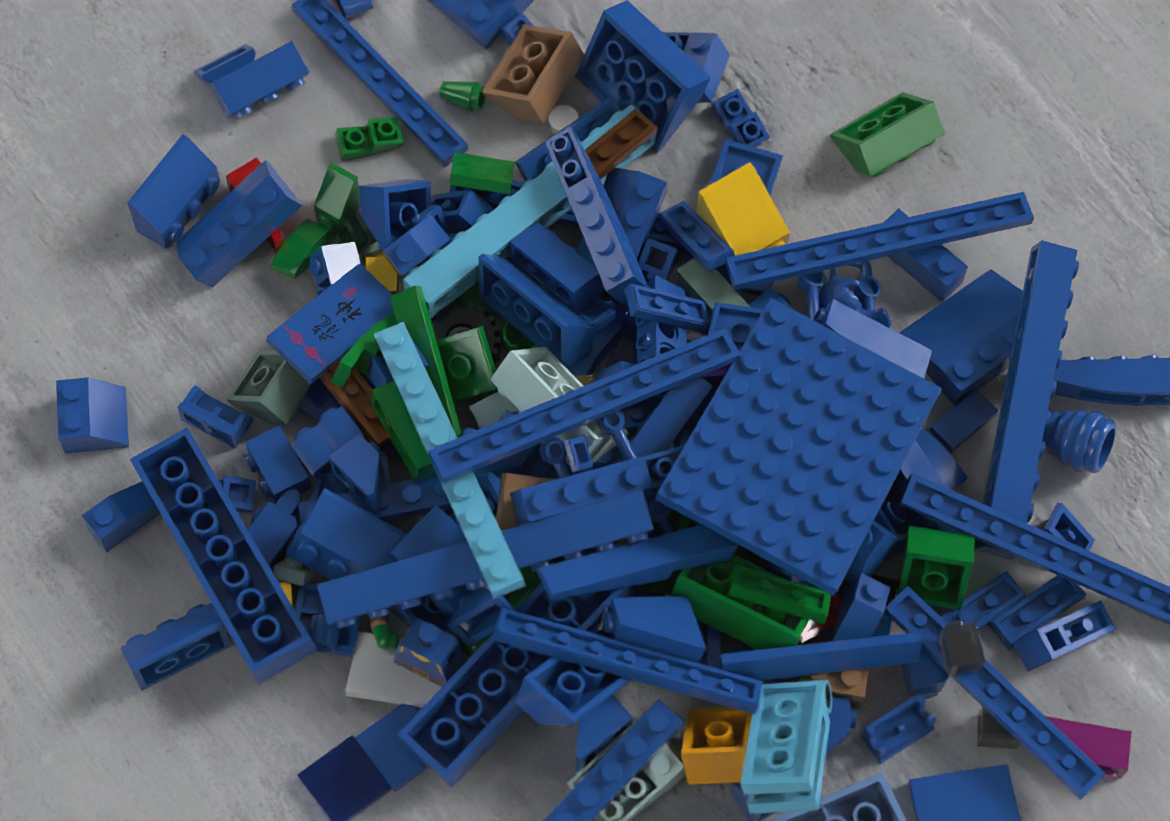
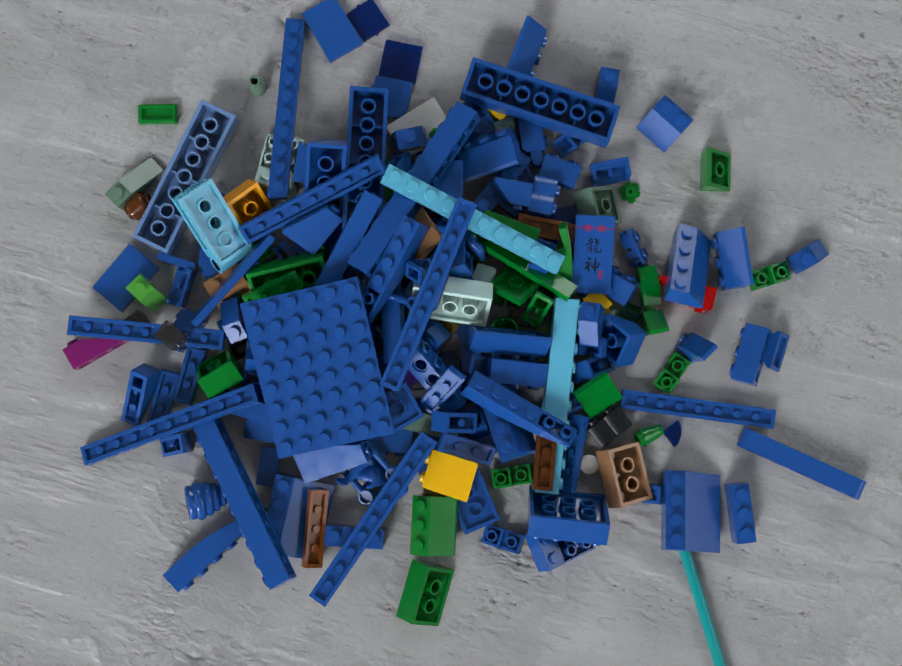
camera: 140 degrees right, 20 degrees up
(84, 131) = (807, 256): none -> blue slope
(91, 313) = (715, 170): none -> green slope
(142, 146) = (770, 275): none -> green slope
(219, 382) = (630, 197): none -> green plant
(278, 295) = (632, 240): none -> blue hinge
(316, 127) = (695, 347): none -> blue slope
(431, 76) = (673, 433): none -> clear blue tile
(461, 314) = (537, 309): none -> green slope
(500, 136) = (608, 426): none -> black brick
(679, 179) = (512, 476): none -> green slope
(686, 265) = (454, 422): none -> blue slope
(814, 188) = (433, 525): none -> green slope
(873, 758) = (177, 261): none -> blue tile
(952, 758) = (146, 292): none -> bright green slope
(962, 297) = (315, 528): none -> dark orange plate

